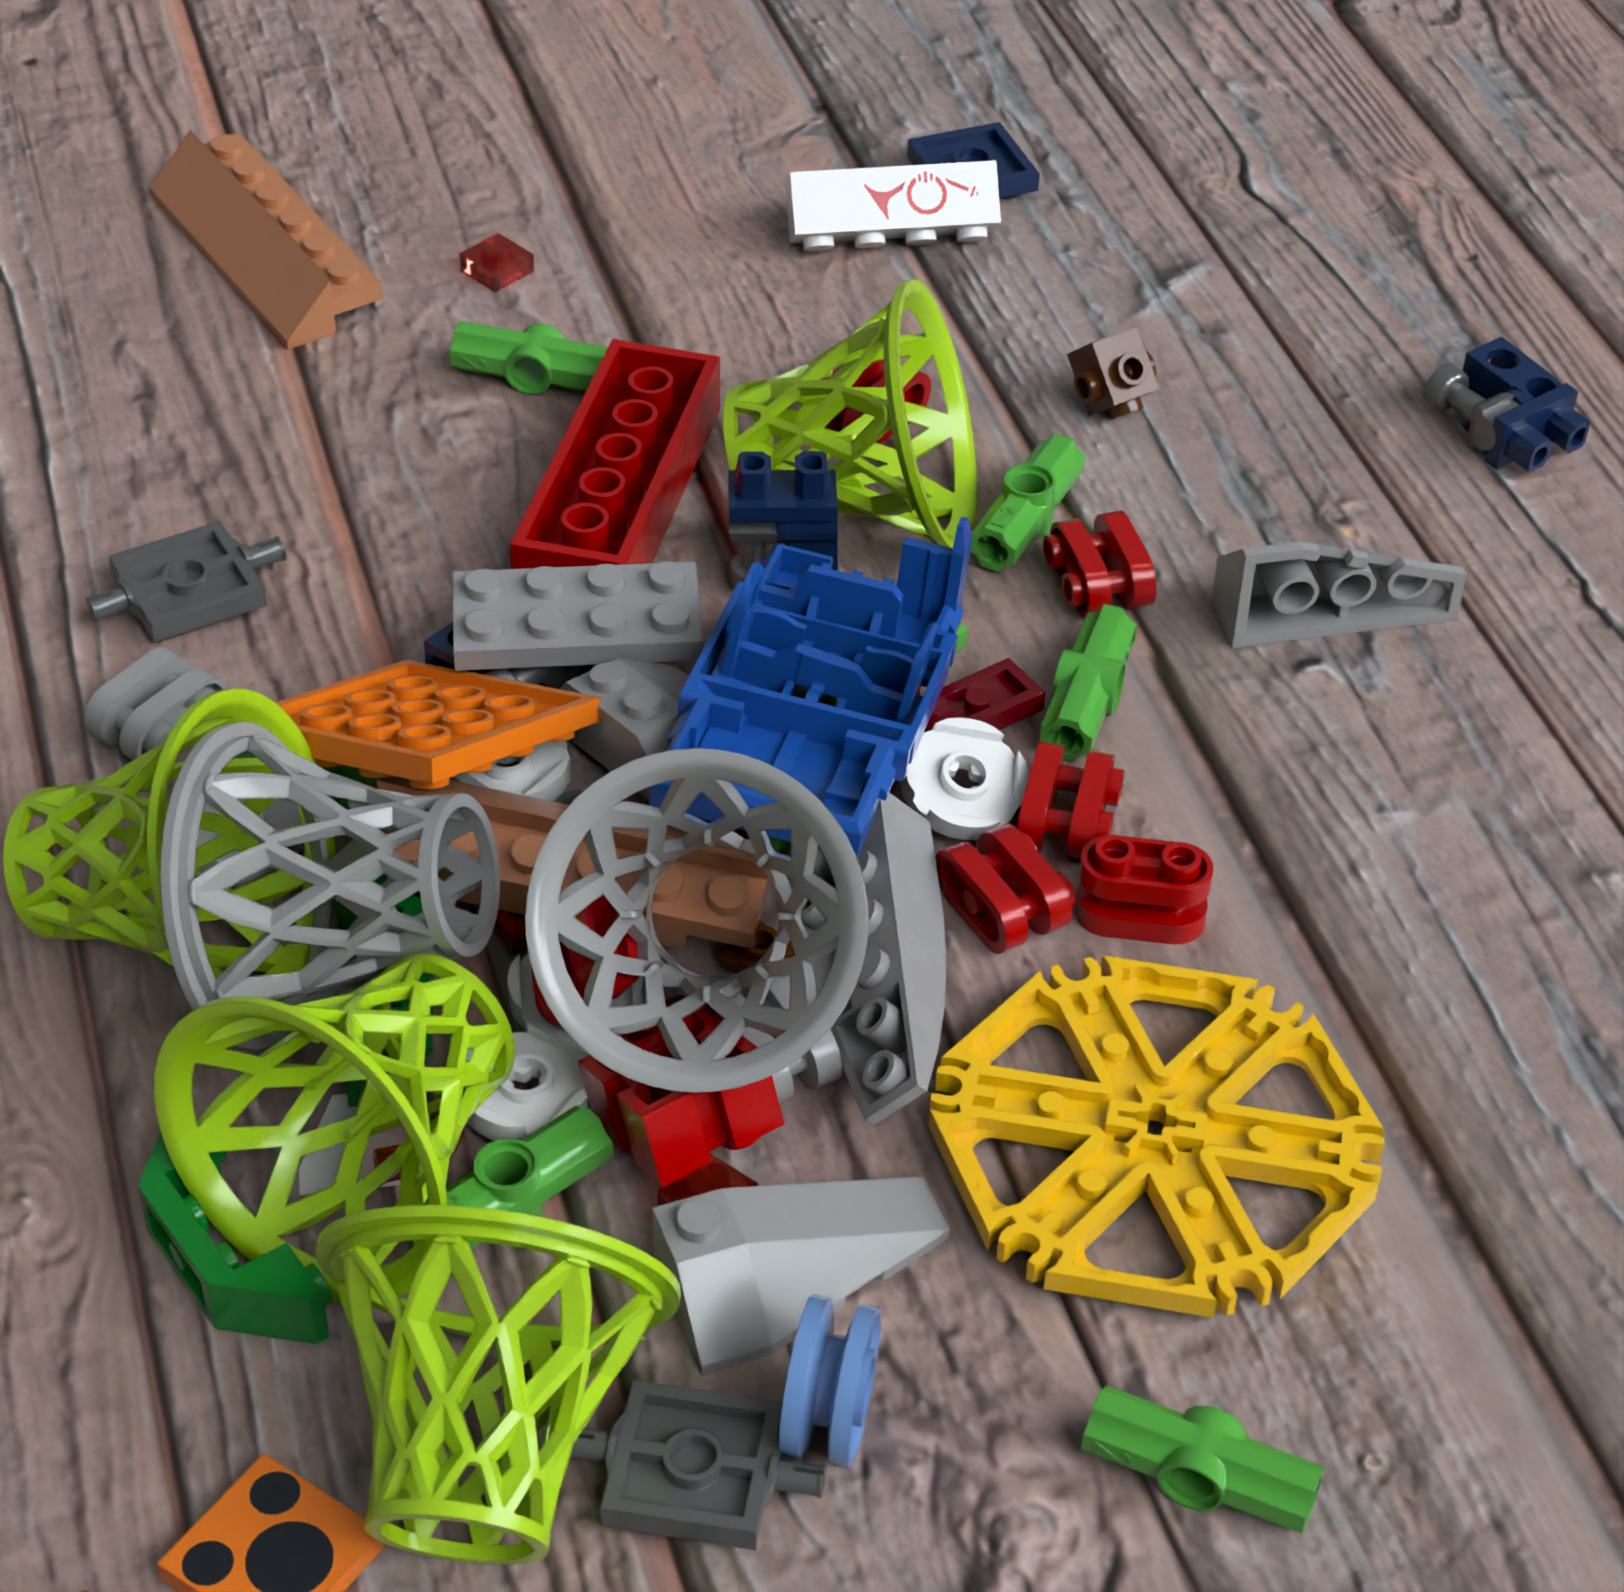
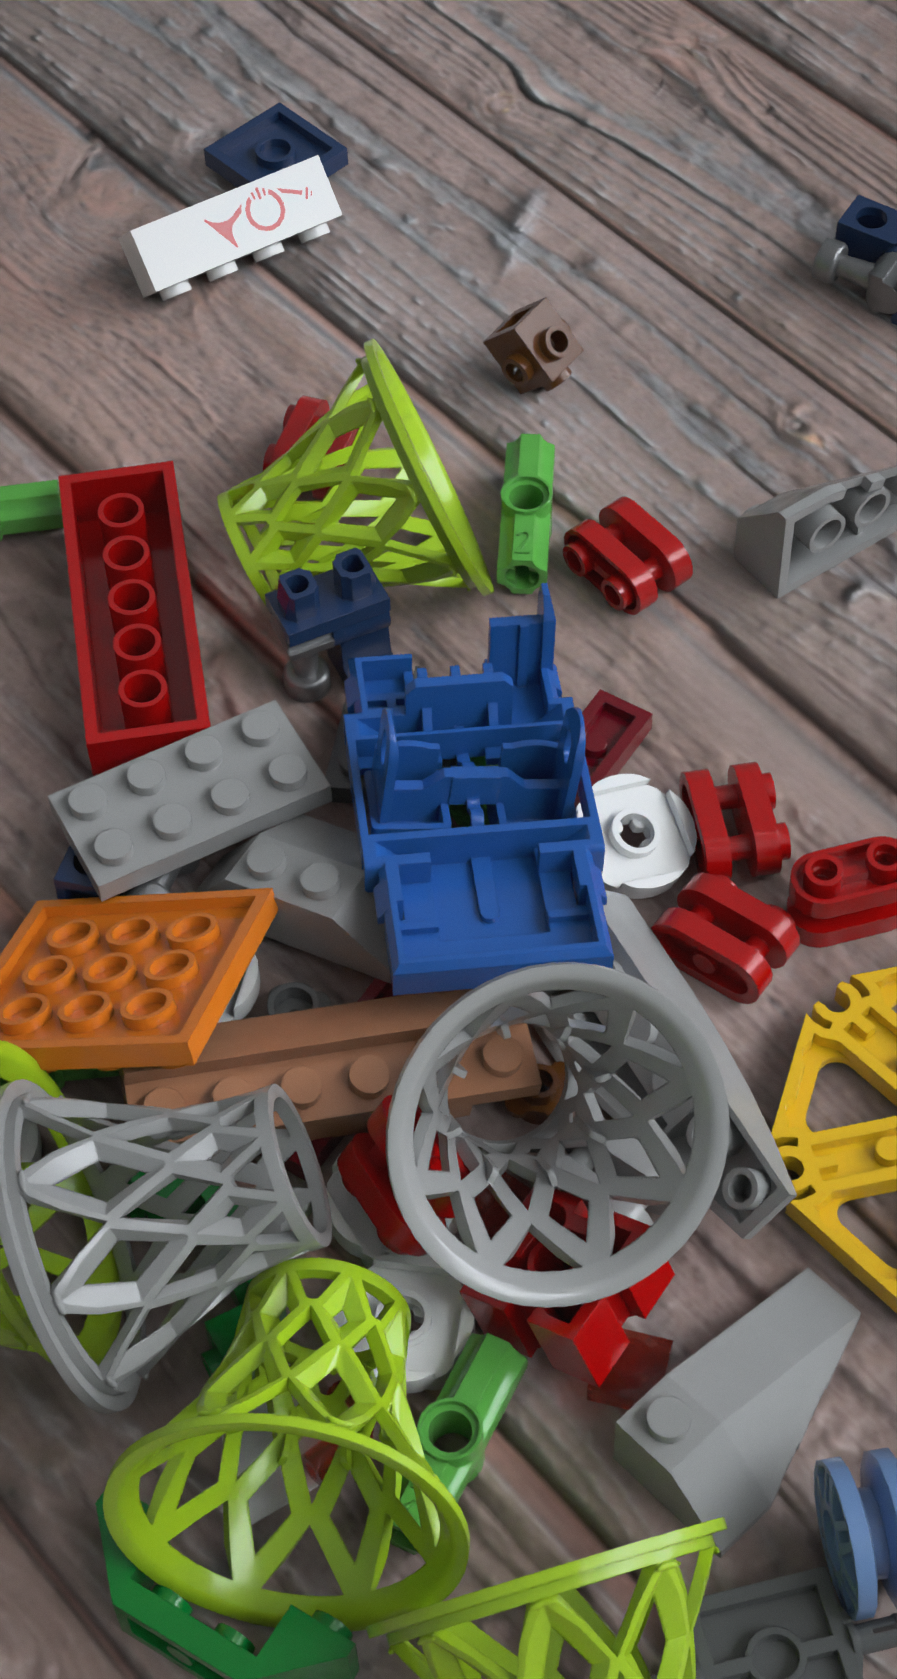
camera: 20 degrees left, 10 degrees up
(1089, 681) = (682, 687): bright green piece -> none

